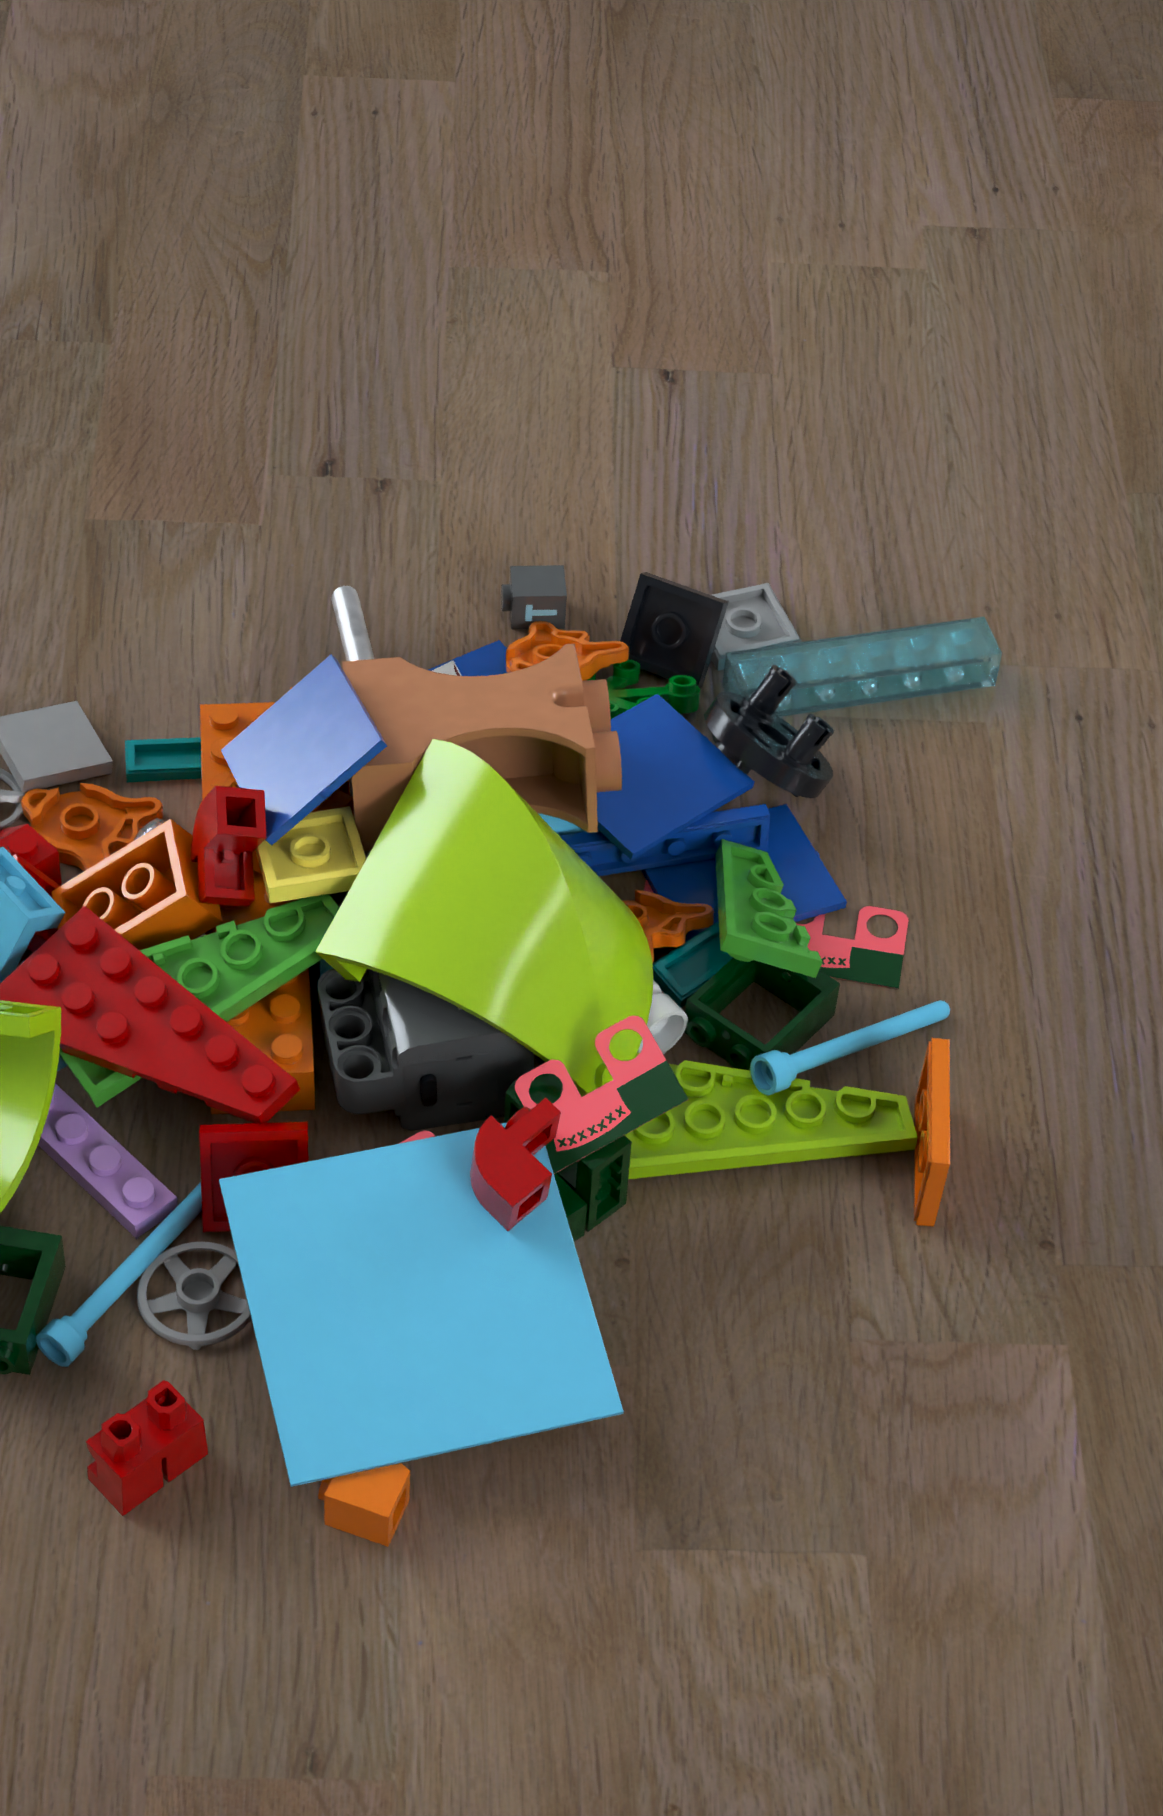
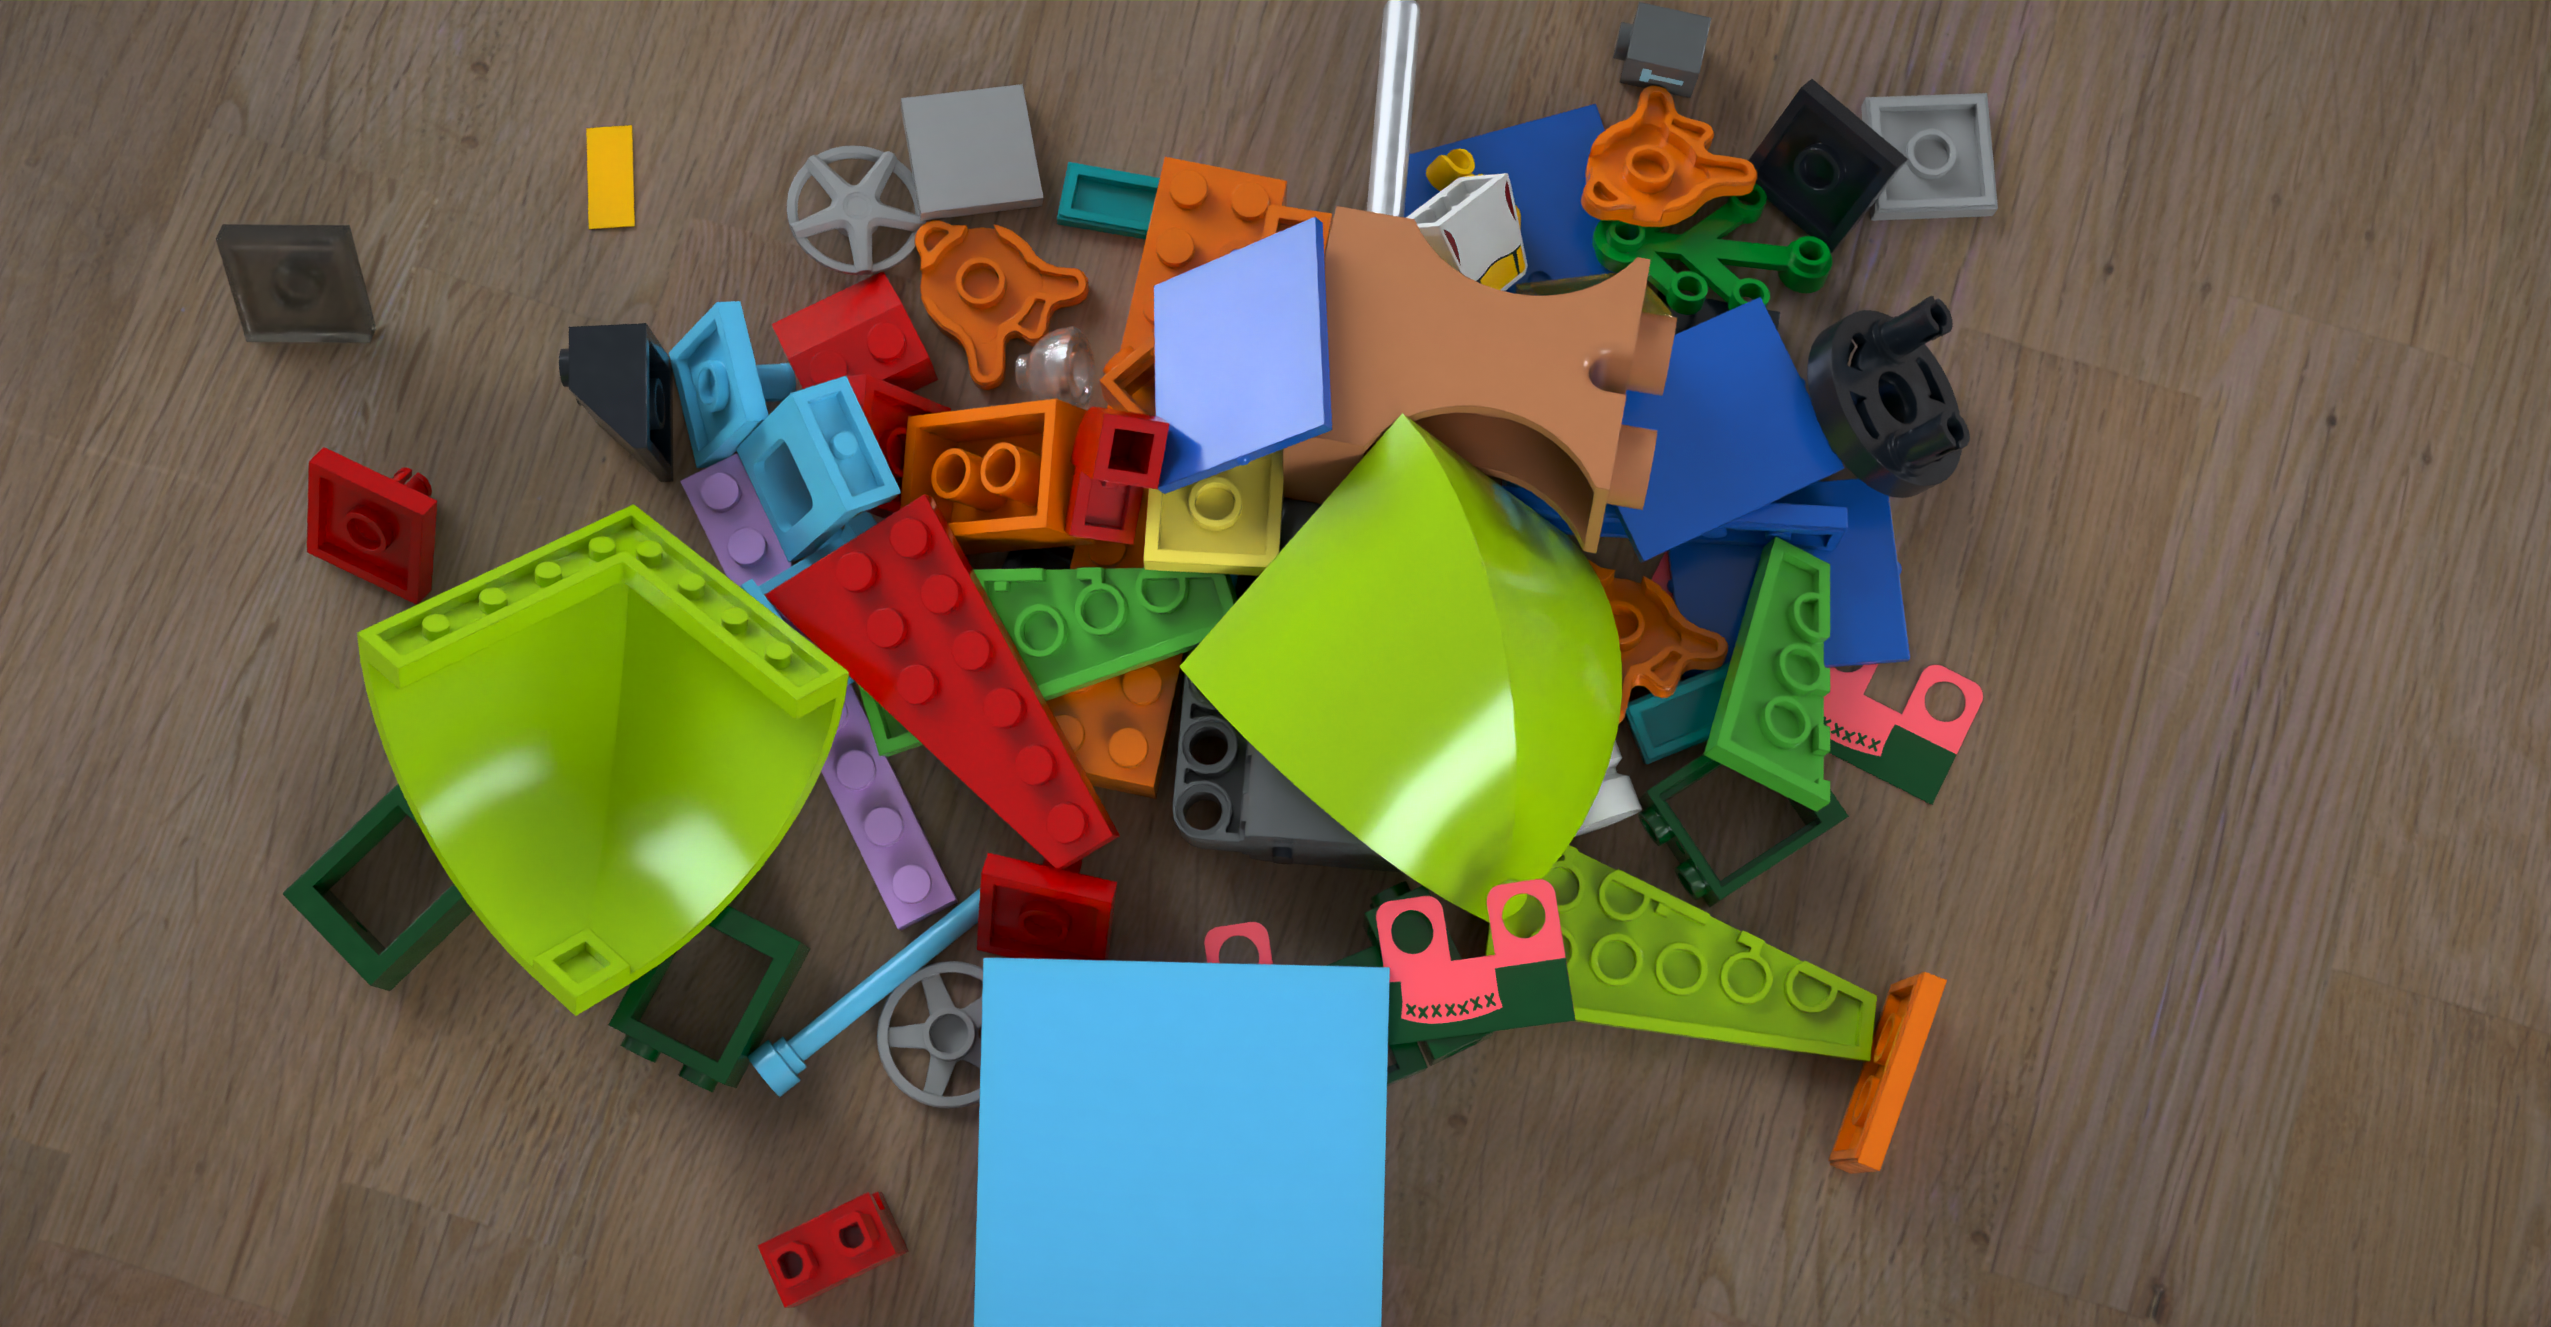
camera: 20 degrees right, 30 degrees up
(503, 1167) = (1318, 1044): red brick -> none
(777, 1069) = (1724, 927): medium azure piece -> none
(872, 666) = (2067, 279): clear light blue brick -> none

